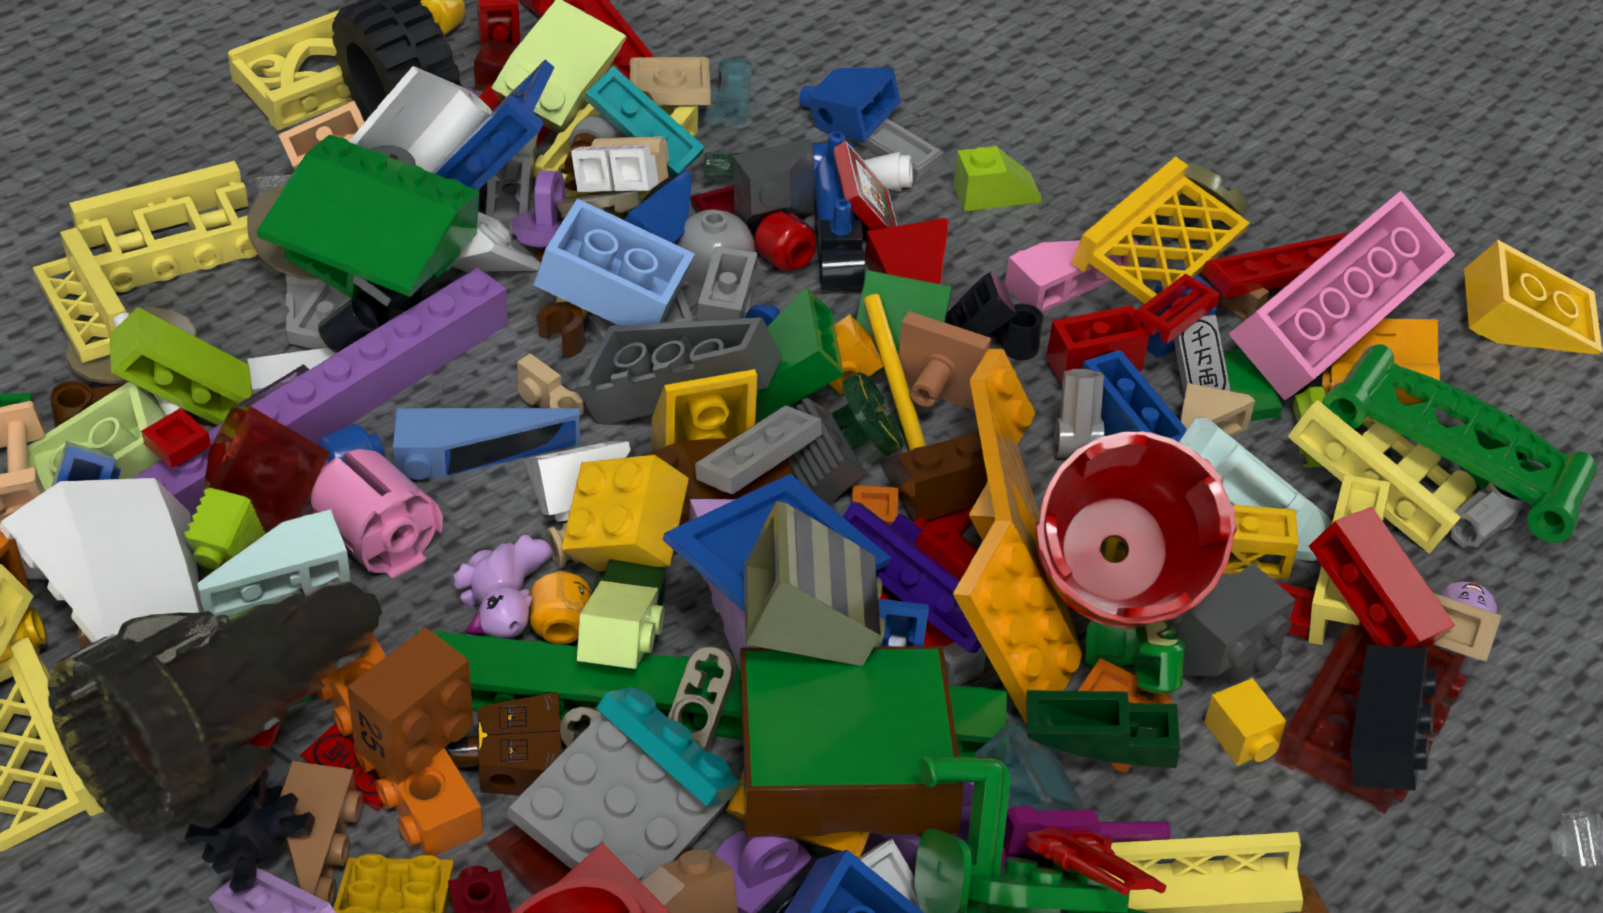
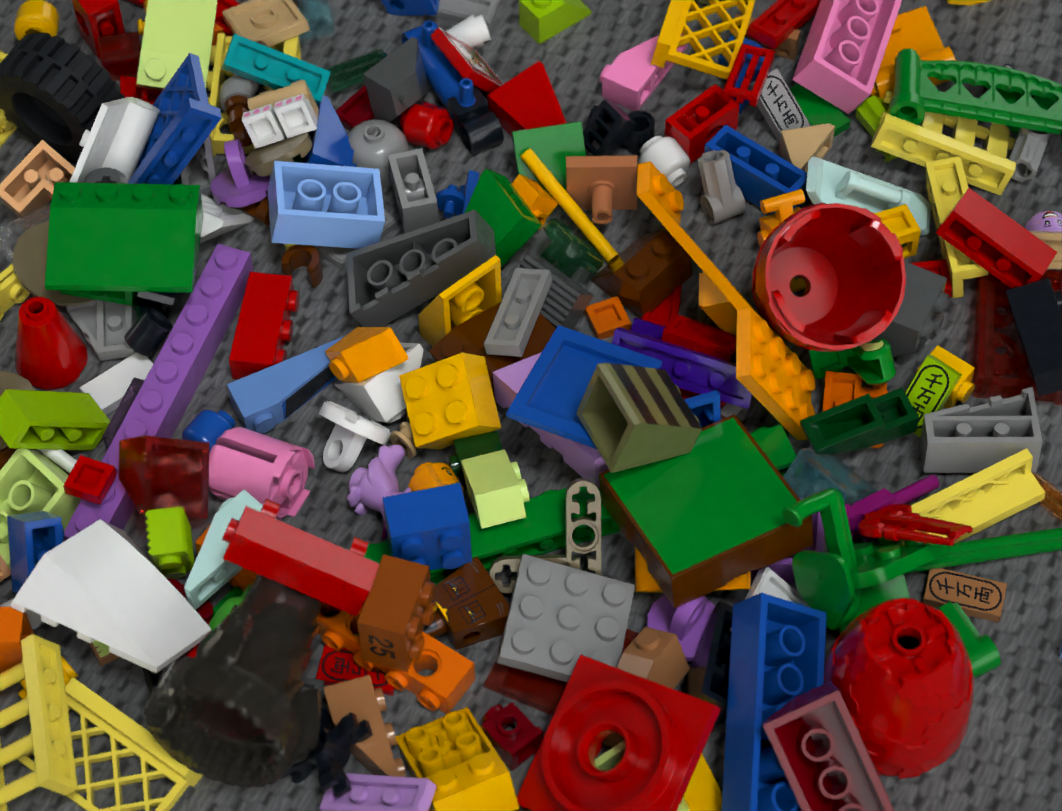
camera: 20 degrees left, 10 degrees up
(236, 300) = (47, 346): none -> red cone
(322, 589) = (300, 559): none -> red brick
(480, 365) = (263, 323): none -> red brick
(504, 507) = (348, 435): none -> white tile
(507, 629) = (429, 527): none -> blue brick
(543, 386) = (317, 320): tan plate -> none
(560, 430) = (365, 354): none -> light orange slope
(670, 745) = (581, 563): teal plate -> none
(1036, 368) = (666, 157): none -> white head
(1213, 728) = (931, 388): none -> lime tile
(1232, 796) = (980, 436): none -> light grey wedge

